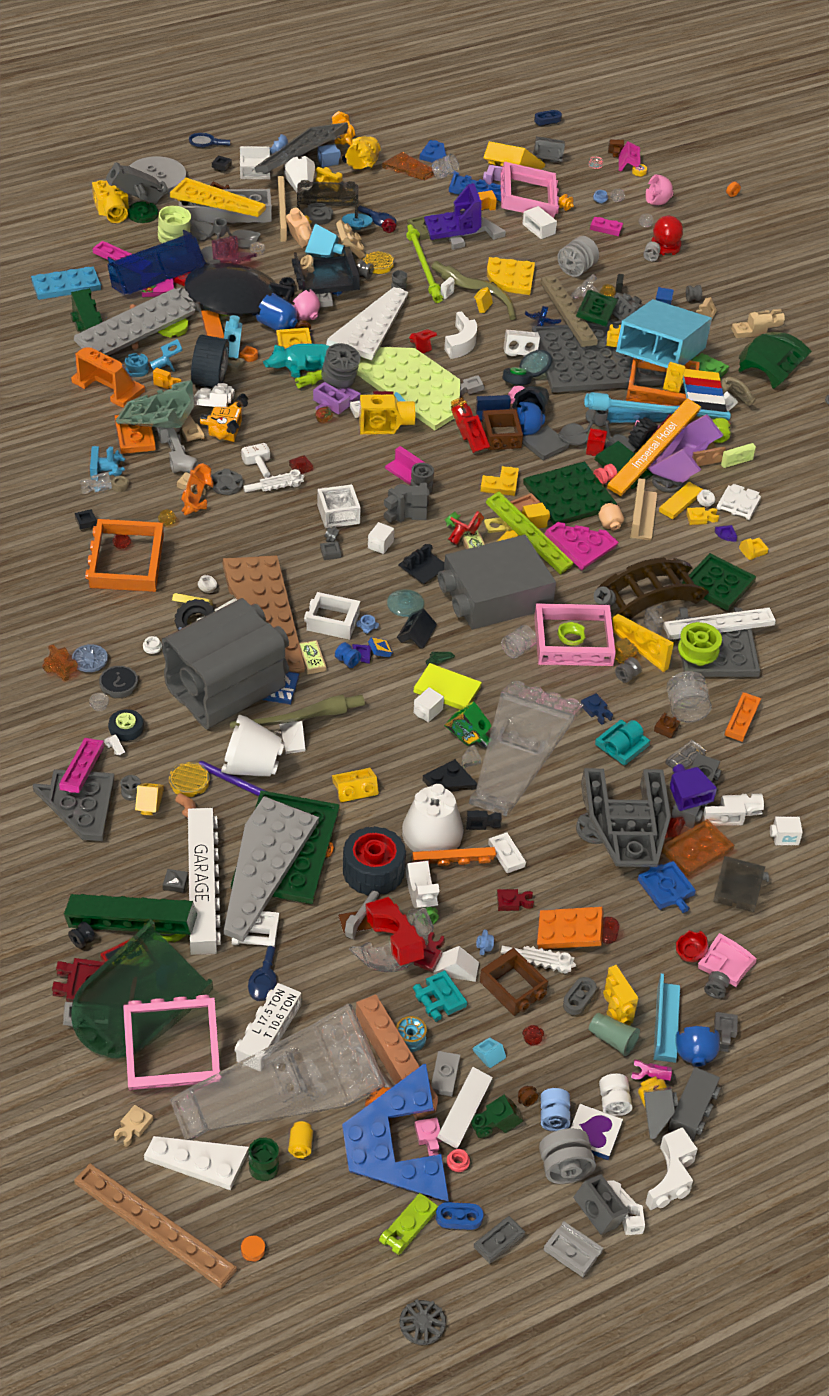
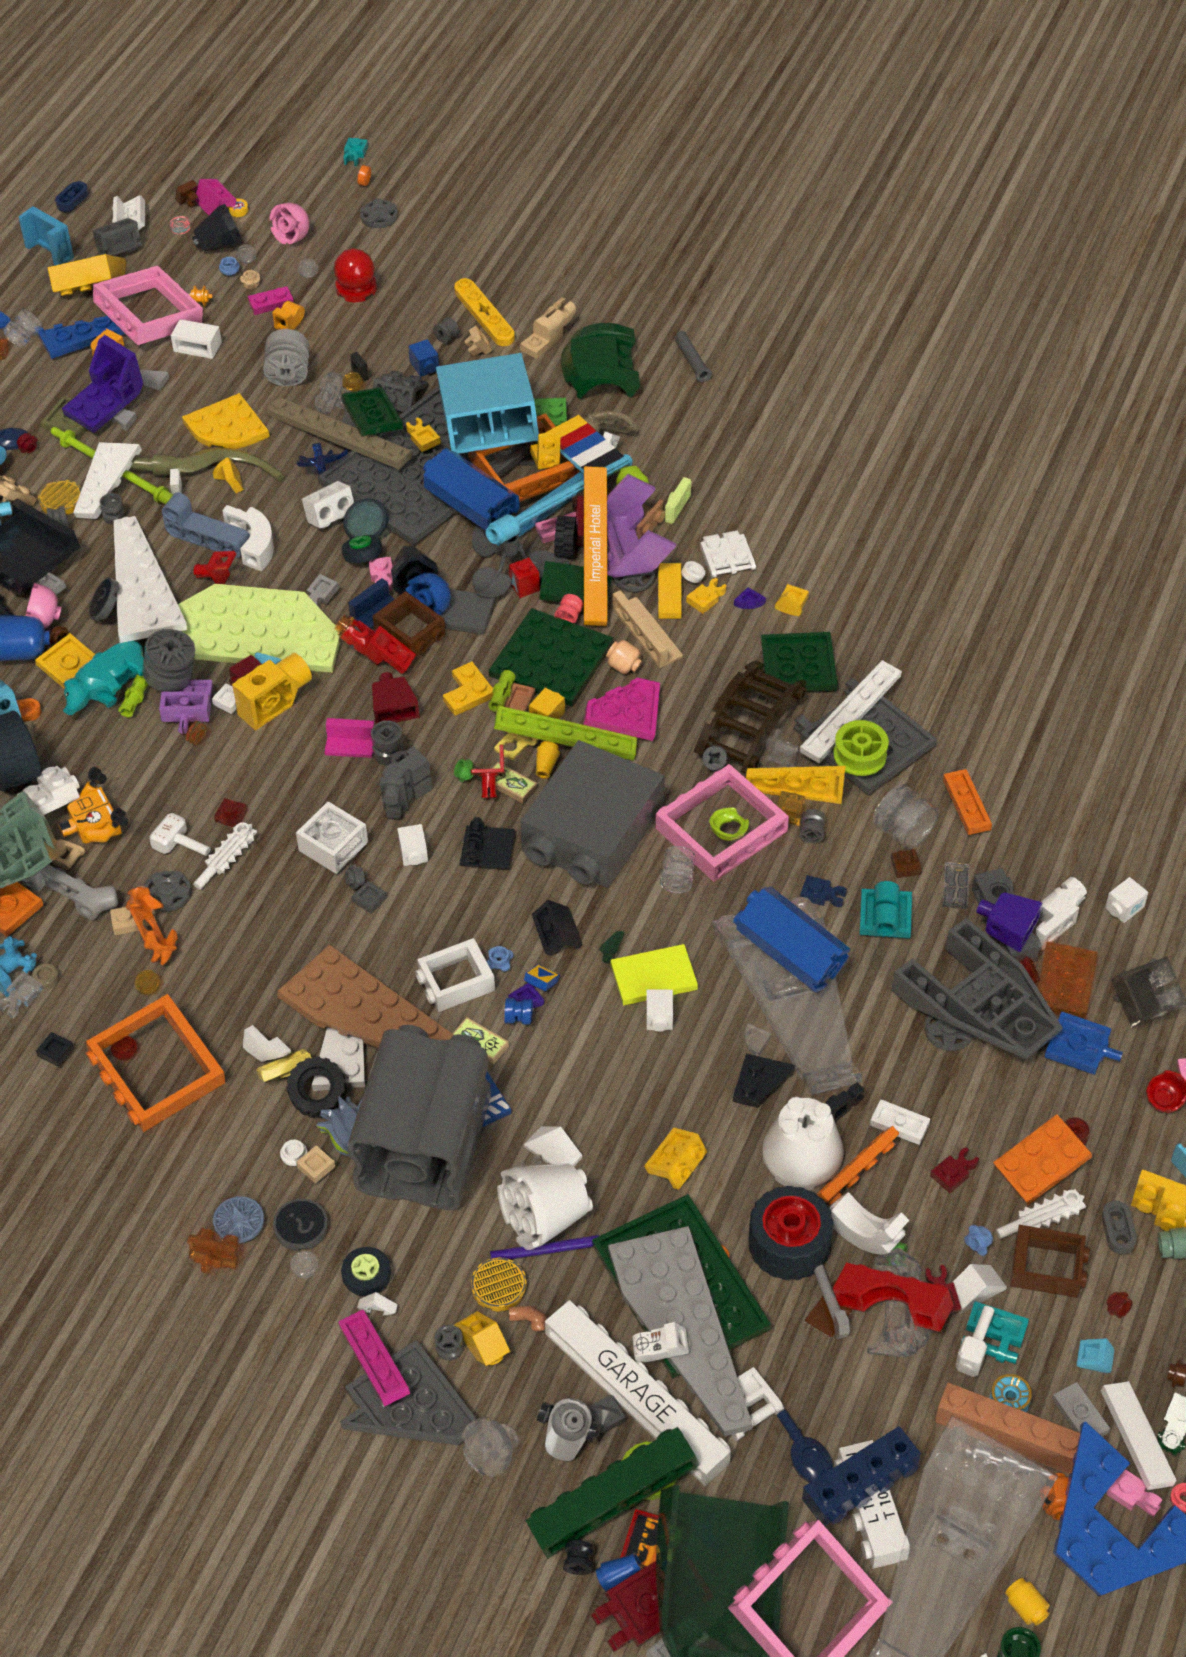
camera: 35 degrees left, 5 degrees up
(93, 848) = (489, 1446): none -> clear tile
(93, 953) = (617, 1570): none -> blue cone
(146, 867) = (568, 1427): none -> light grey cap
(155, 658) = (315, 1164): none -> tan plate
(191, 586) = (261, 1048): none -> white slope
(207, 584) = (280, 1030): white tile -> none
(231, 859) = (660, 1343): none -> white leg
(270, 1001) = (861, 1477): none -> dark blue brick
(330, 706) = (550, 1110): olive animal -> none
(343, 321) = (103, 599): none -> tile
(405, 602) = (510, 912): clear light blue dish -> none
(409, 991) = (974, 1348): none -> white piece
(411, 261) = (104, 475): none -> white wing
(434, 314) = (200, 529): none -> sand blue beam
(449, 461) = (393, 699): none -> dark red torso
(470, 725) = (729, 1004): green torso -> none
(492, 173) = (83, 305): lavender bracket -> none
(508, 124) = (47, 232): none -> dark azure panel
(526, 489) = (502, 690): none -> lime pin
(536, 708) = (791, 938): none -> blue brick
(571, 141) = (131, 209): none -> white bracket
(606, 209) = (250, 279): none -> tan plate
(606, 238) = (290, 314): none -> light orange leg
(607, 371) = (468, 489): none -> blue brick
(611, 173) = (217, 231): none -> black cone
(652, 251) = (353, 304): light grey wheel -> none
(722, 213) = (378, 211): none -> dark grey wheel
(729, 305) = (492, 323): none -> yellow piece
(744, 173) = (354, 149): none -> teal plate

